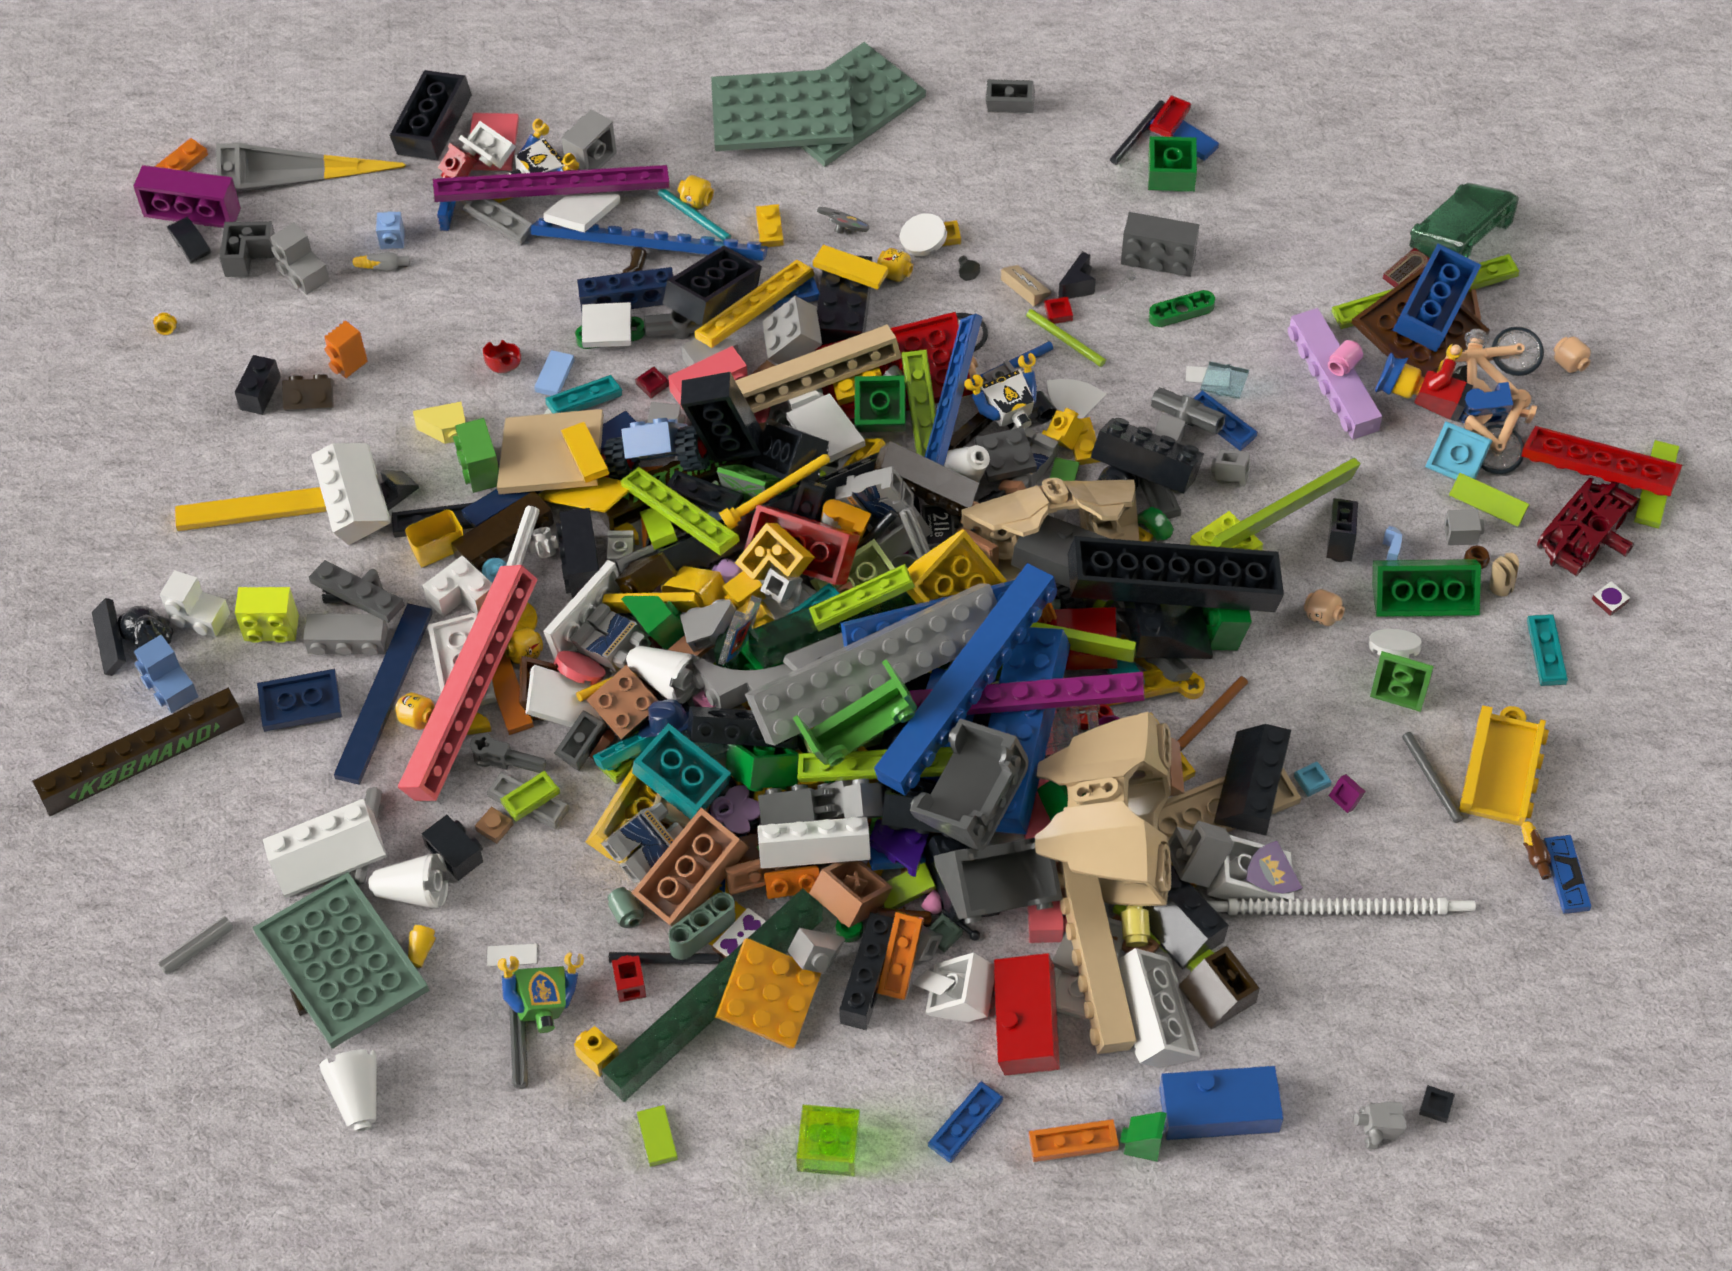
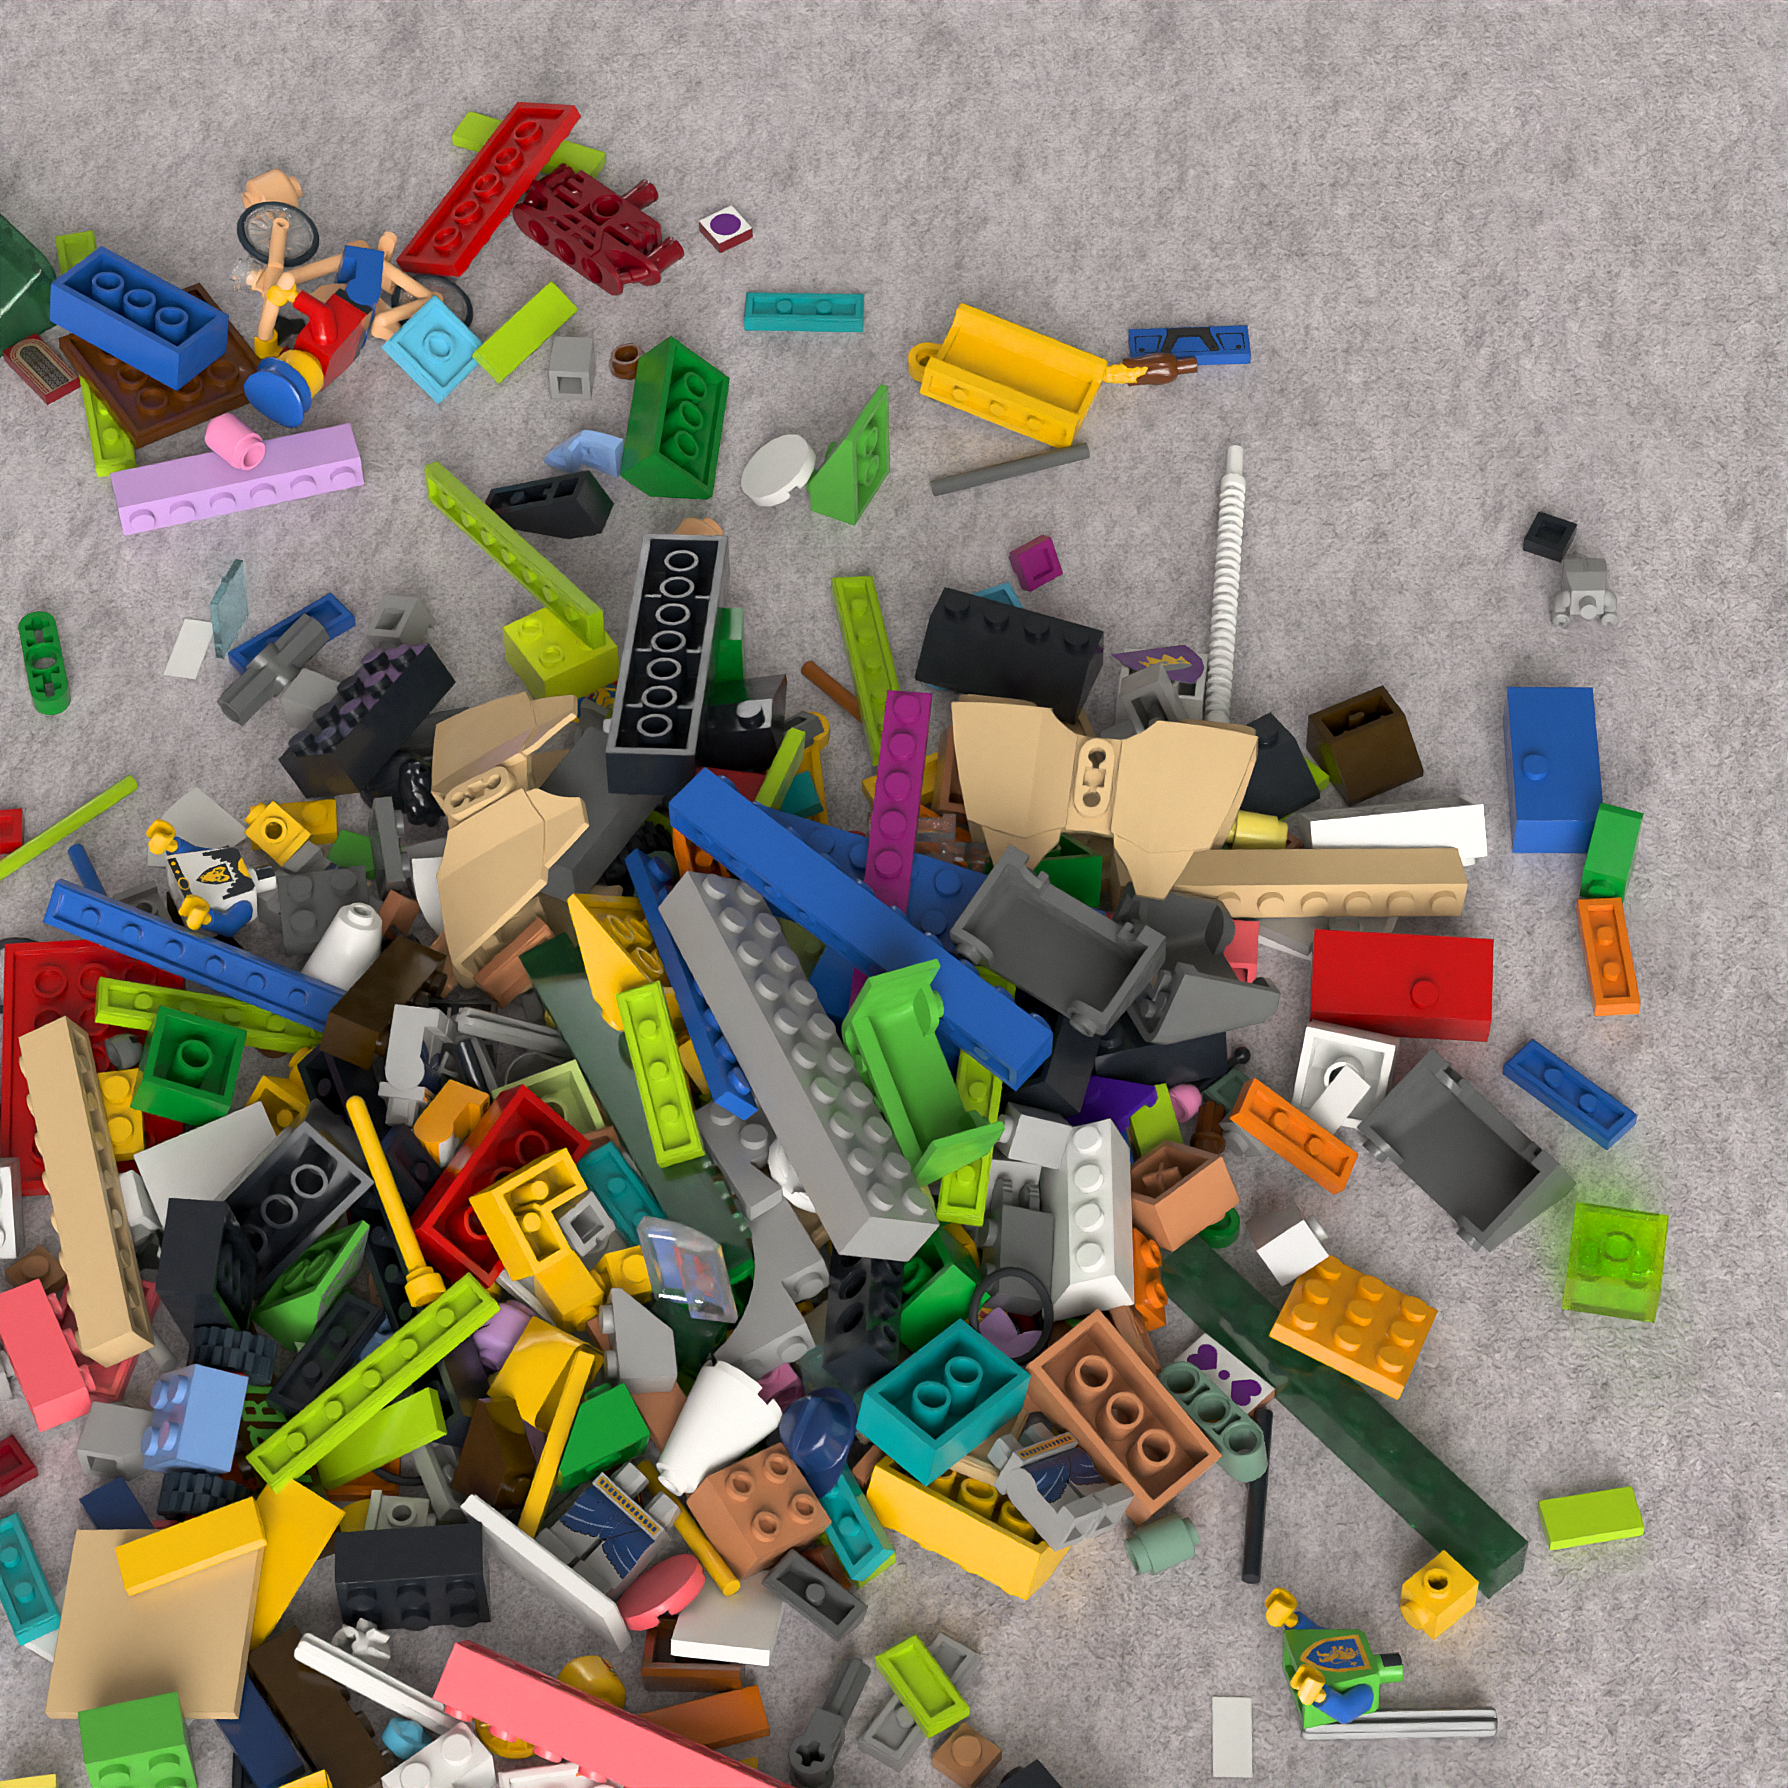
camera: 85 degrees left, 5 degrees down
(629, 978) = (1301, 1540): red brick -> none
(720, 803) = (1044, 1296): none -> black tyre
(866, 973) = (1342, 1200): black brick -> none
(909, 1061) = (1464, 1153): none -> dark grey windscreen
(1054, 467) = (389, 863): none -> dark grey plate
(1243, 711) = (866, 653): none -> lime tile
(1504, 574) = (676, 319): tan arm -> none

